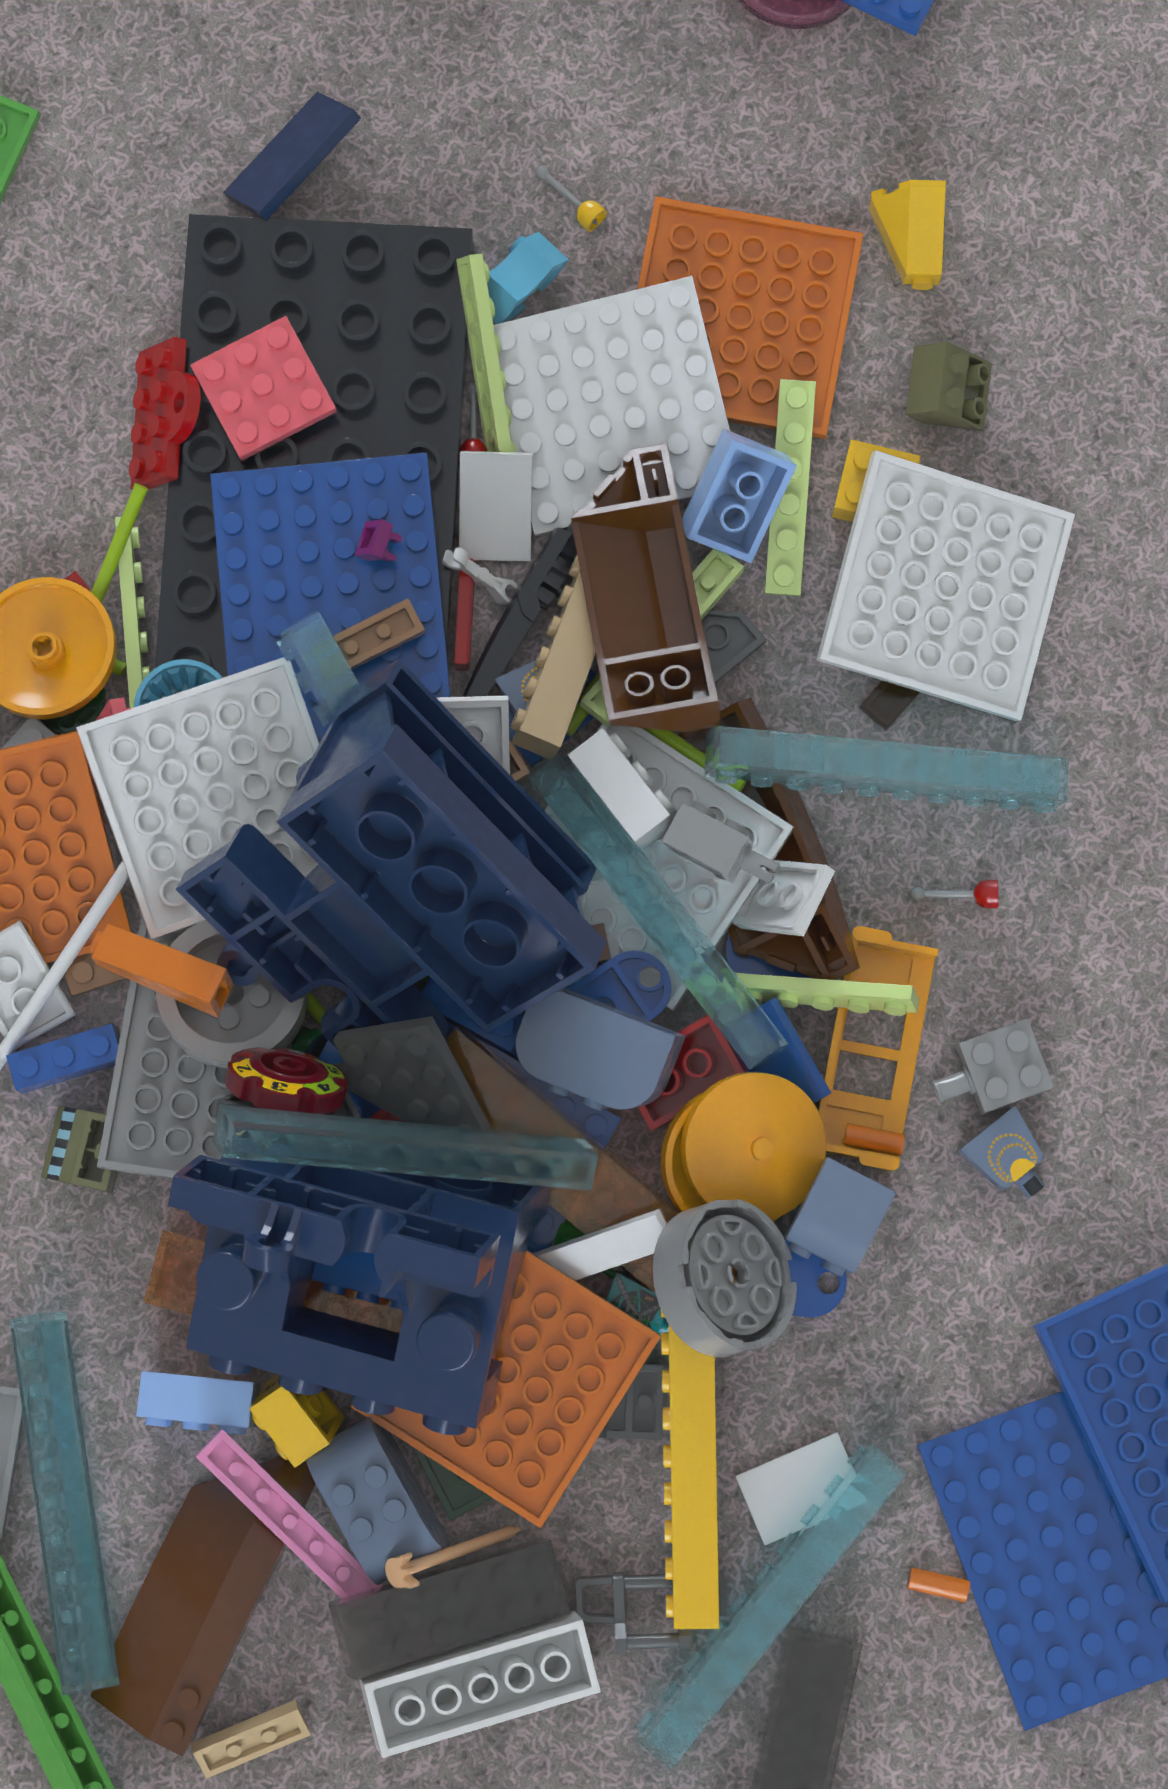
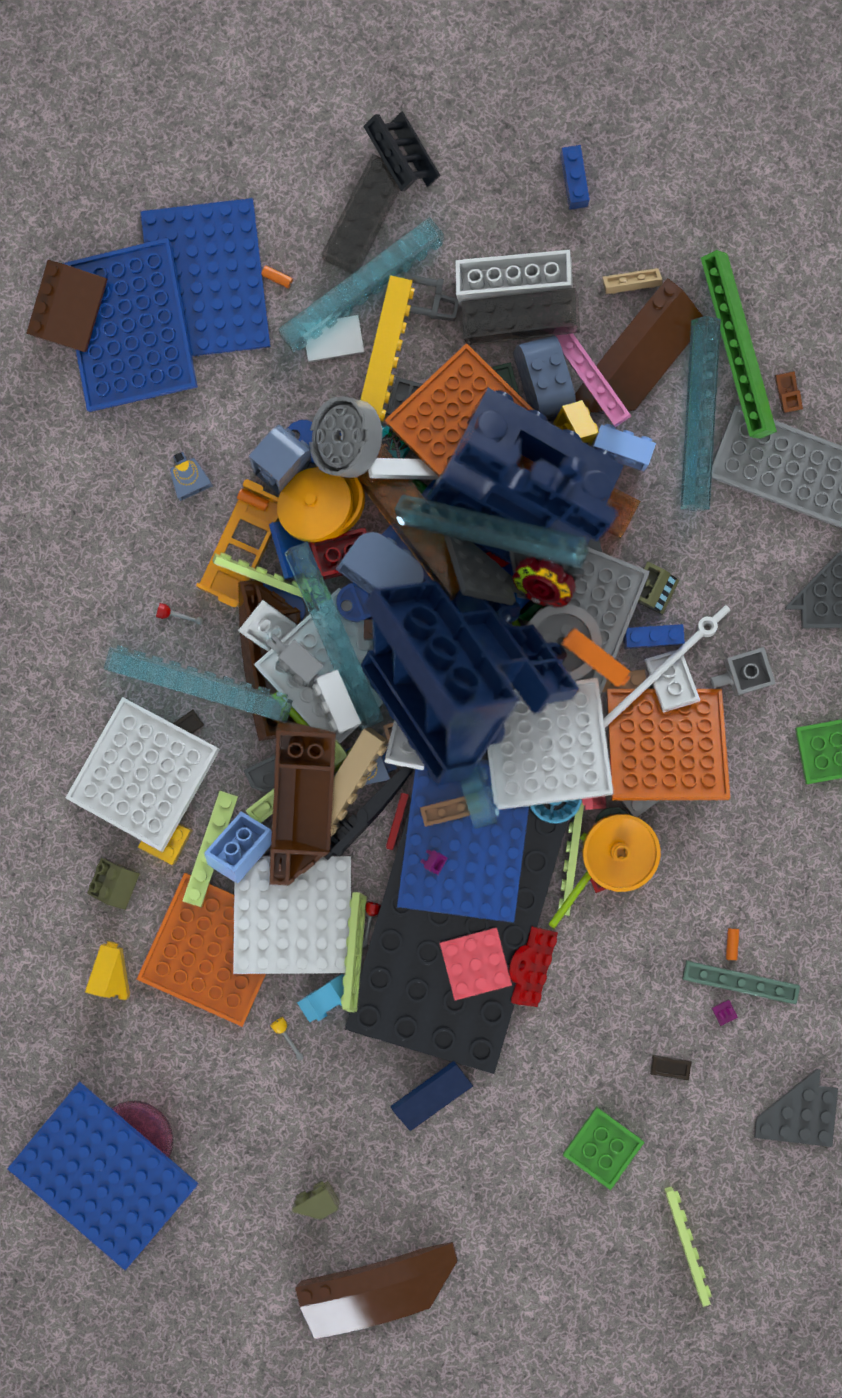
camera: 170 degrees left, 5 degrees up
(400, 1568) = (539, 336): light nougat piece -> none
(495, 585) = (392, 846): white piece -> none
(496, 505) = (367, 874): white tile -> none
(998, 1069) = (181, 520): light grey brick -> none

